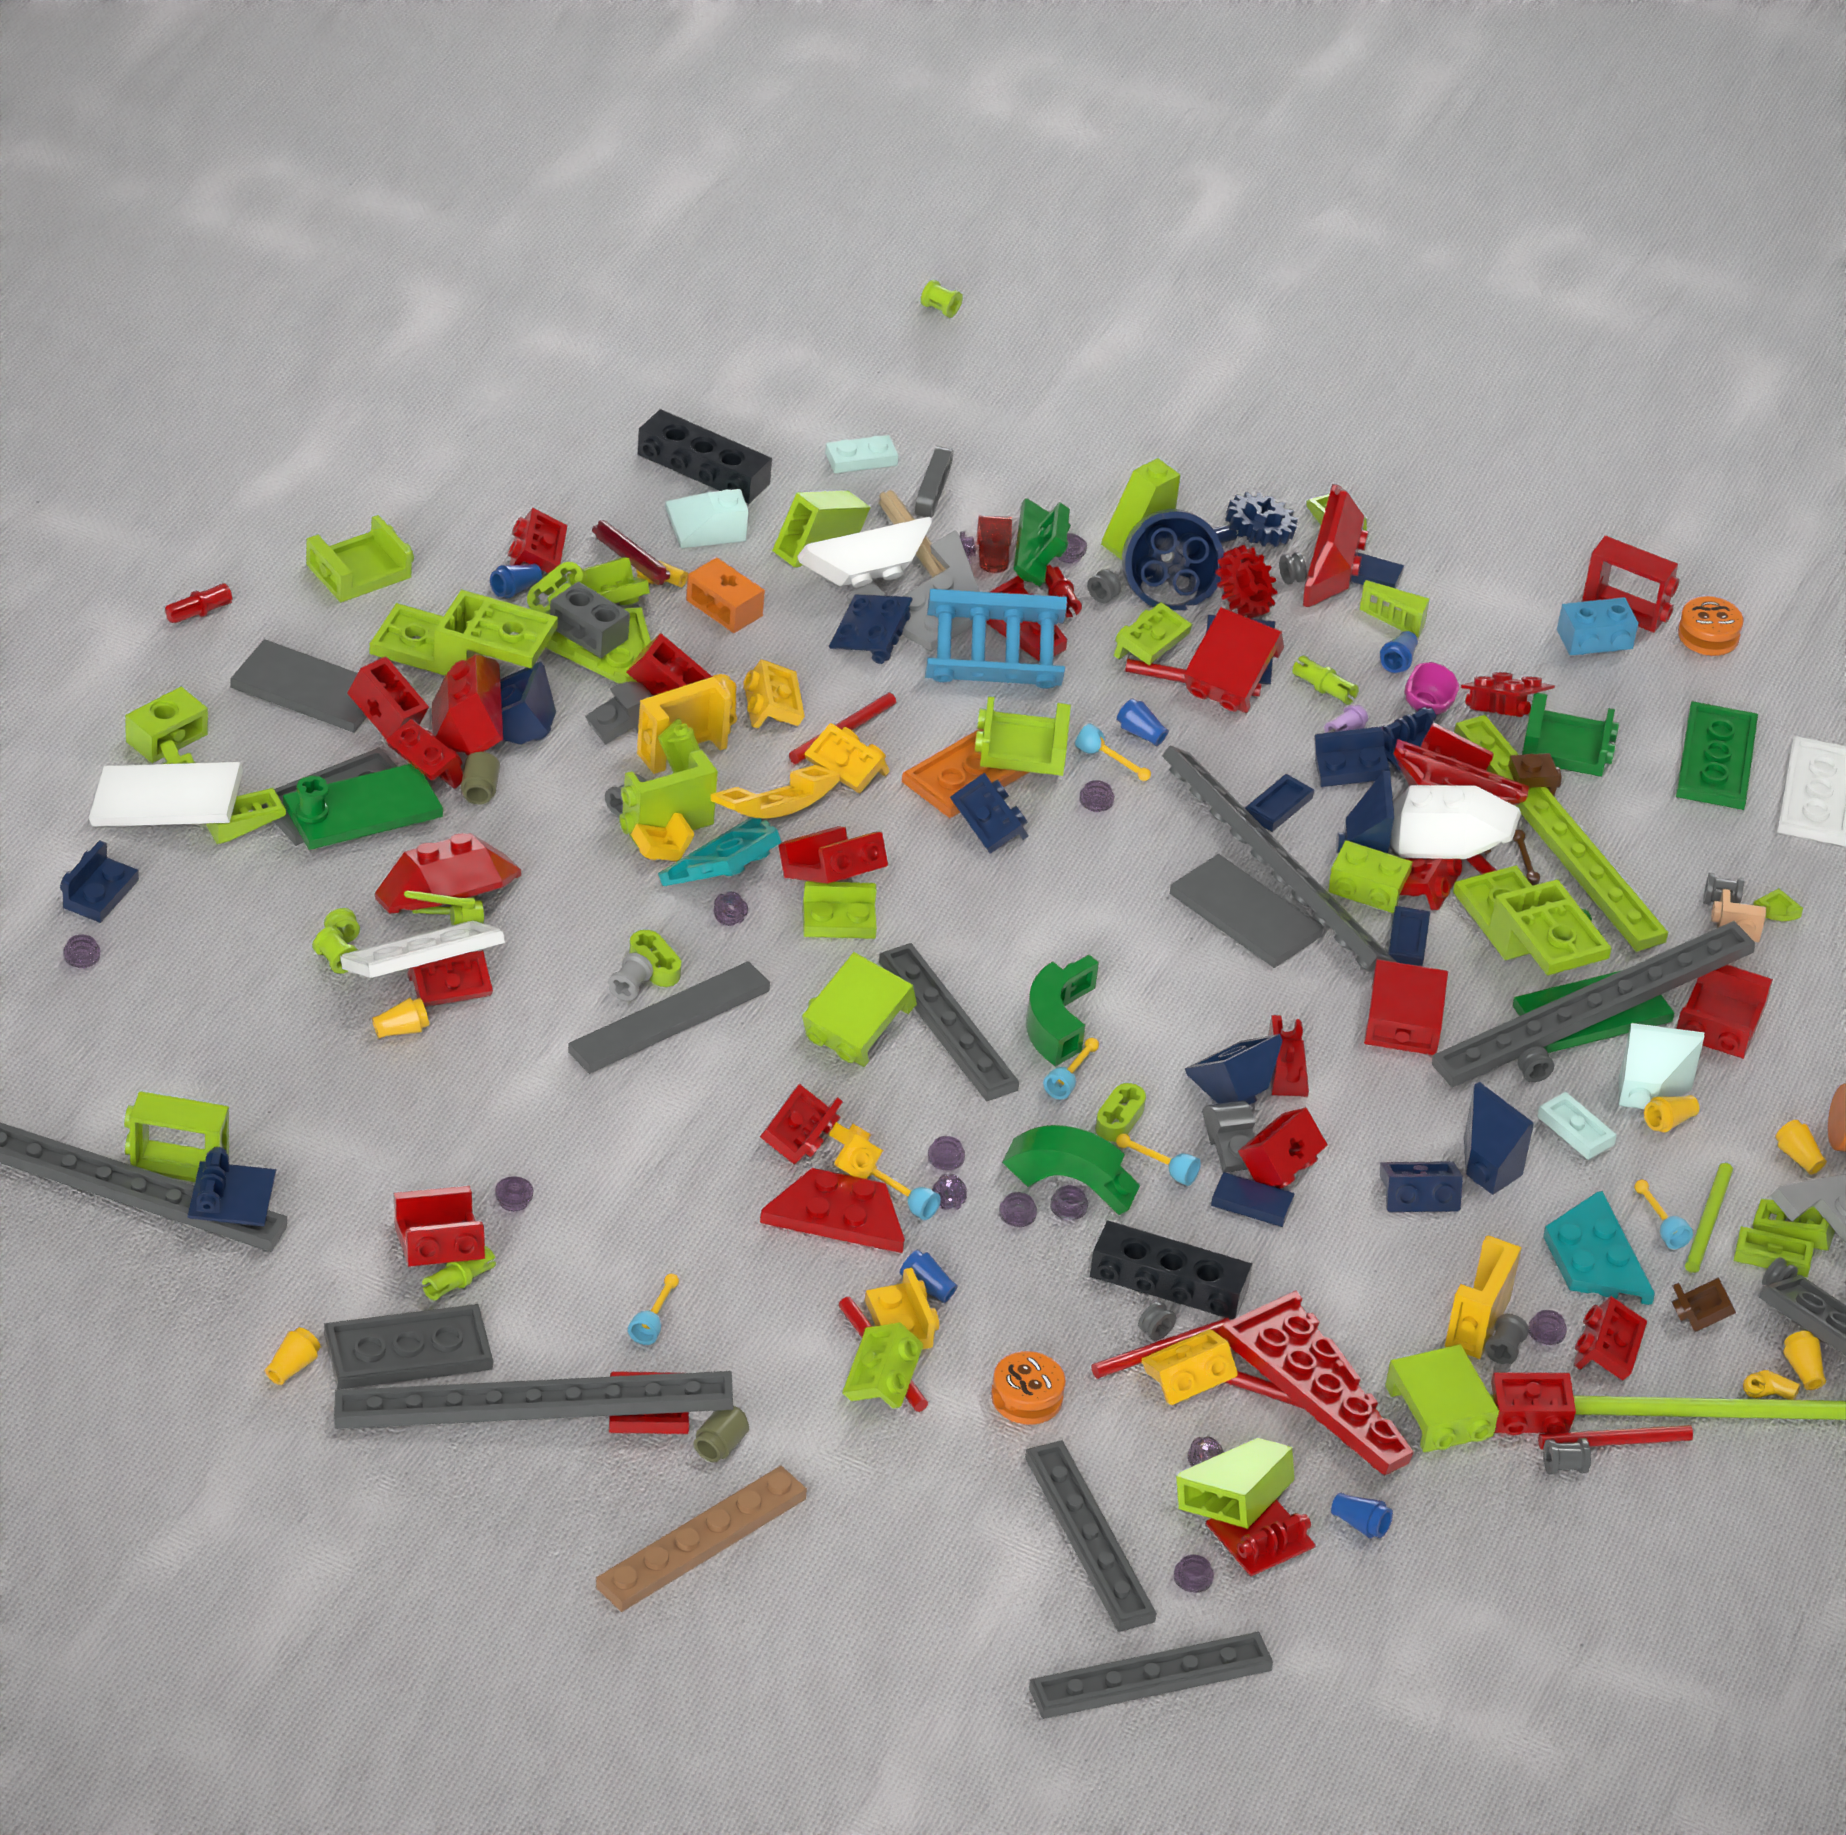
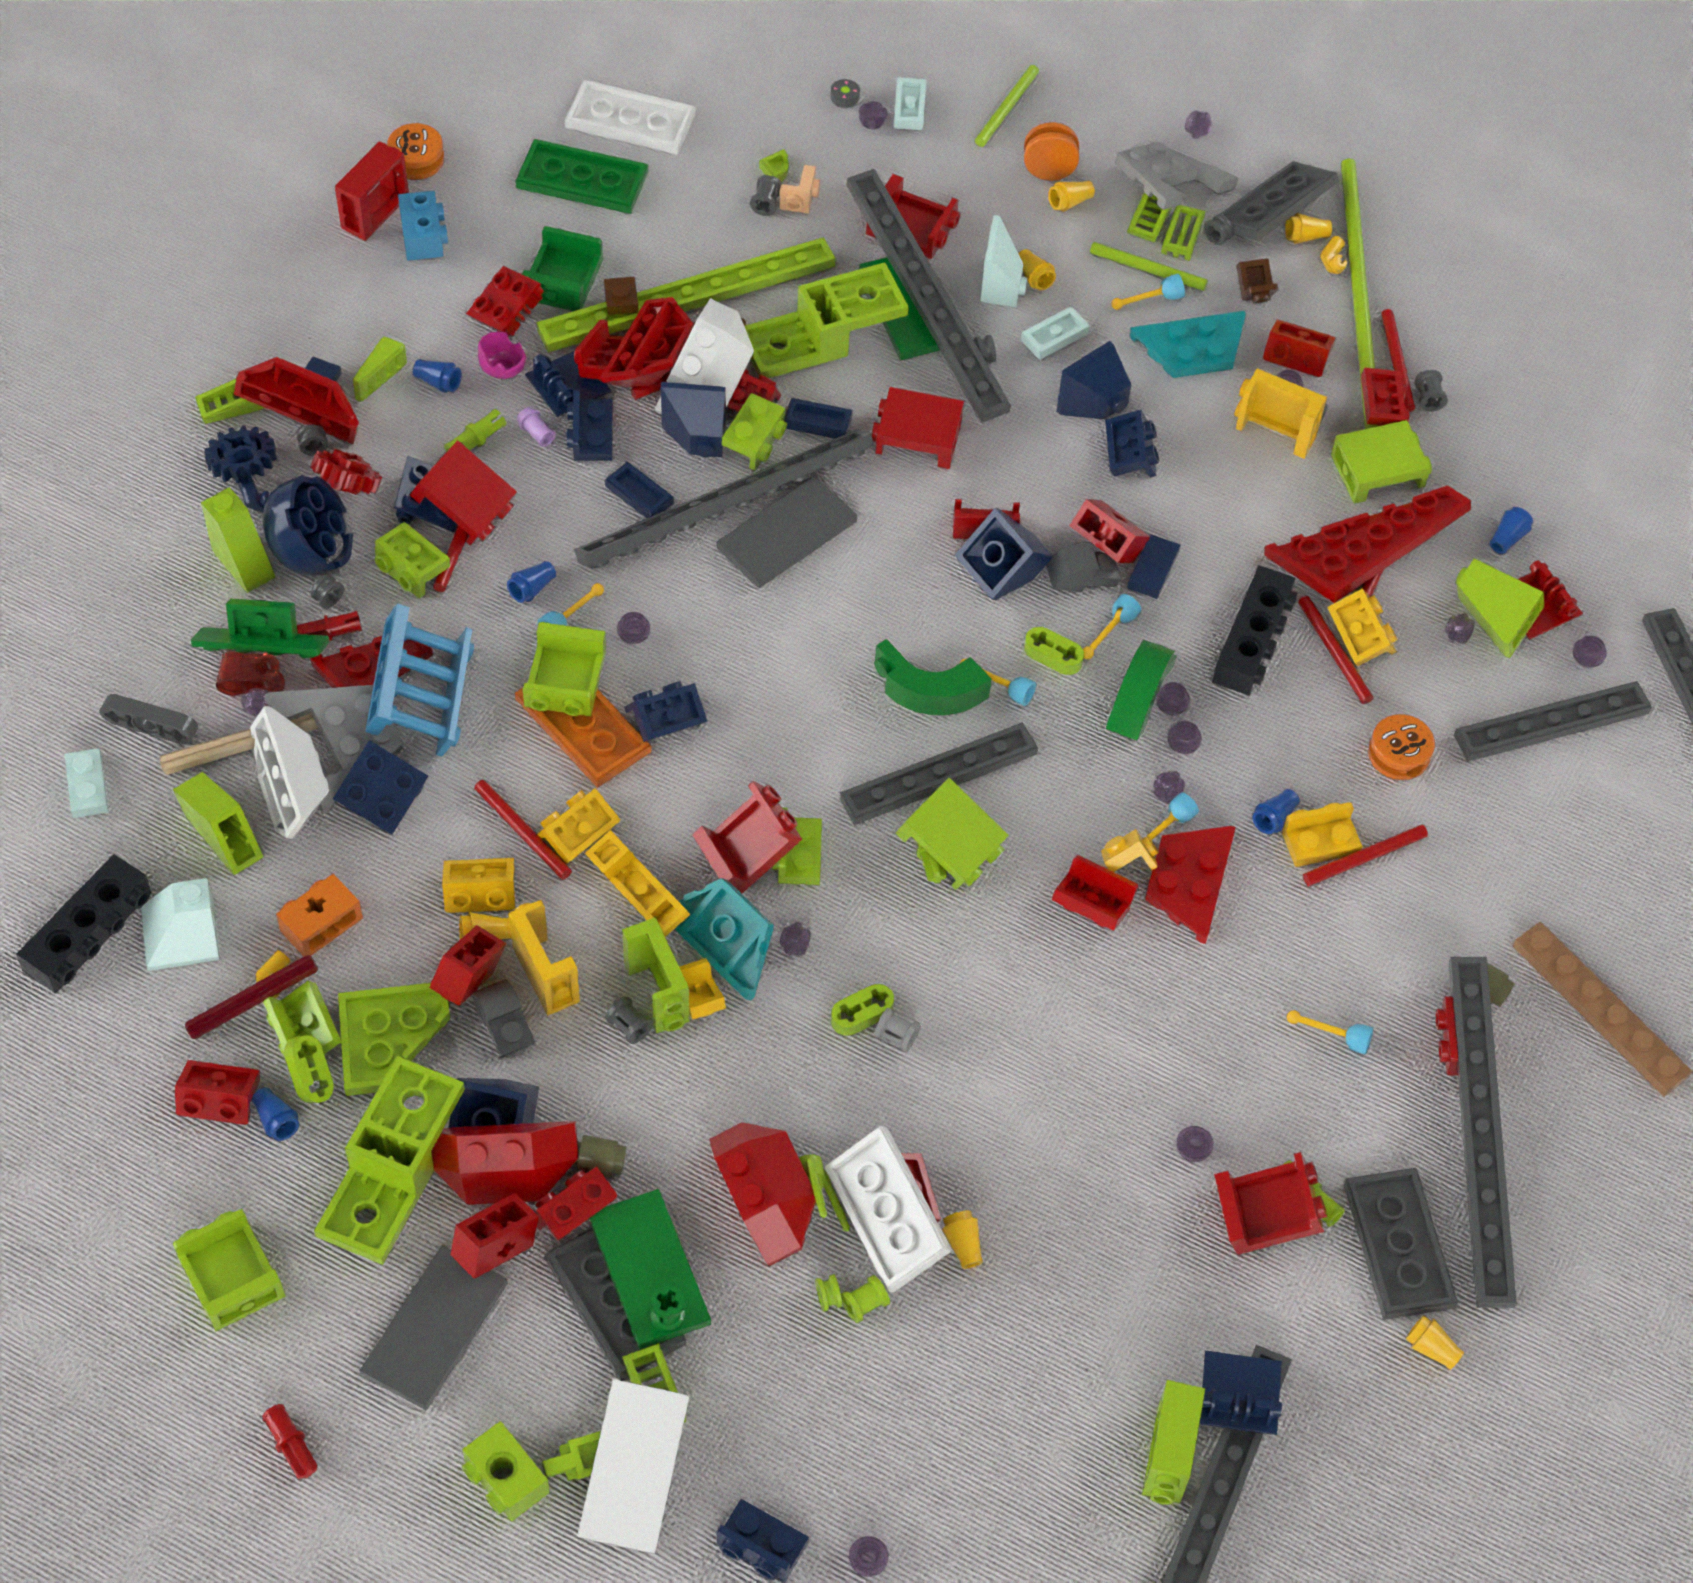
camera: 85 degrees left, 15 degrees up
(590, 619) = (381, 1040): dark grey brick -> none
(668, 1017) = (945, 1002): dark grey tile -> none
(677, 744) = (594, 956): lime hinge -> none
(883, 1364) = (1397, 851): lime bracket -> none
(946, 1153) = (1118, 786): clear purple plate -> none
(1157, 1321) = (1313, 646): dark grey bush -> none

